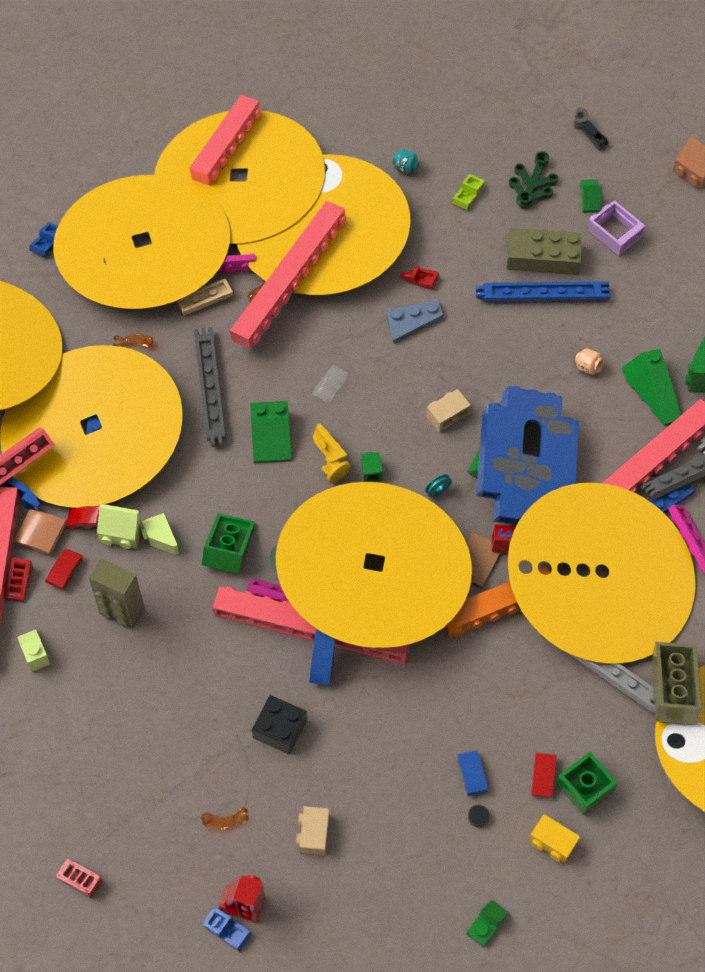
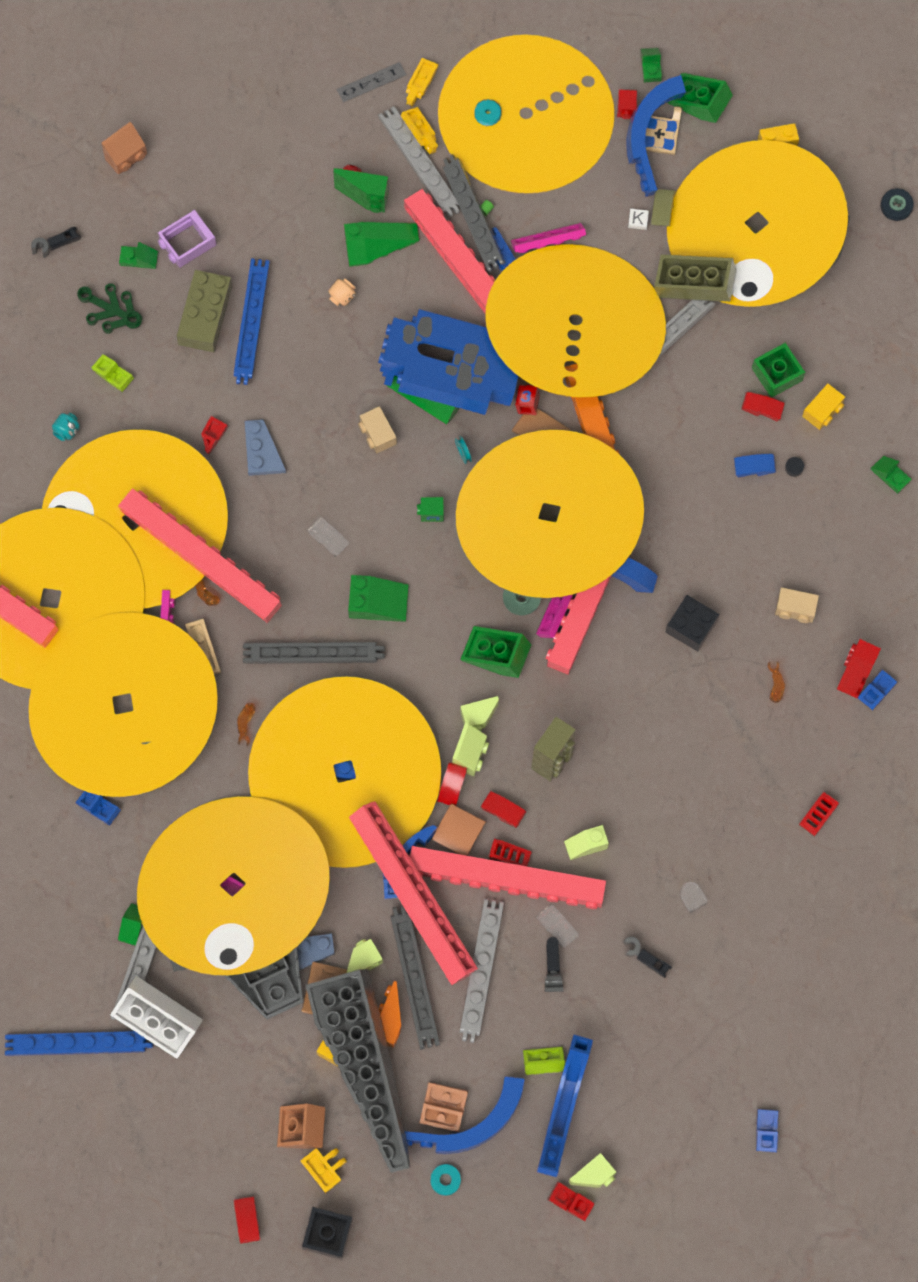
camera: 85 degrees left, 10 degrees up
(336, 465) = (411, 542): yellow piece -> none

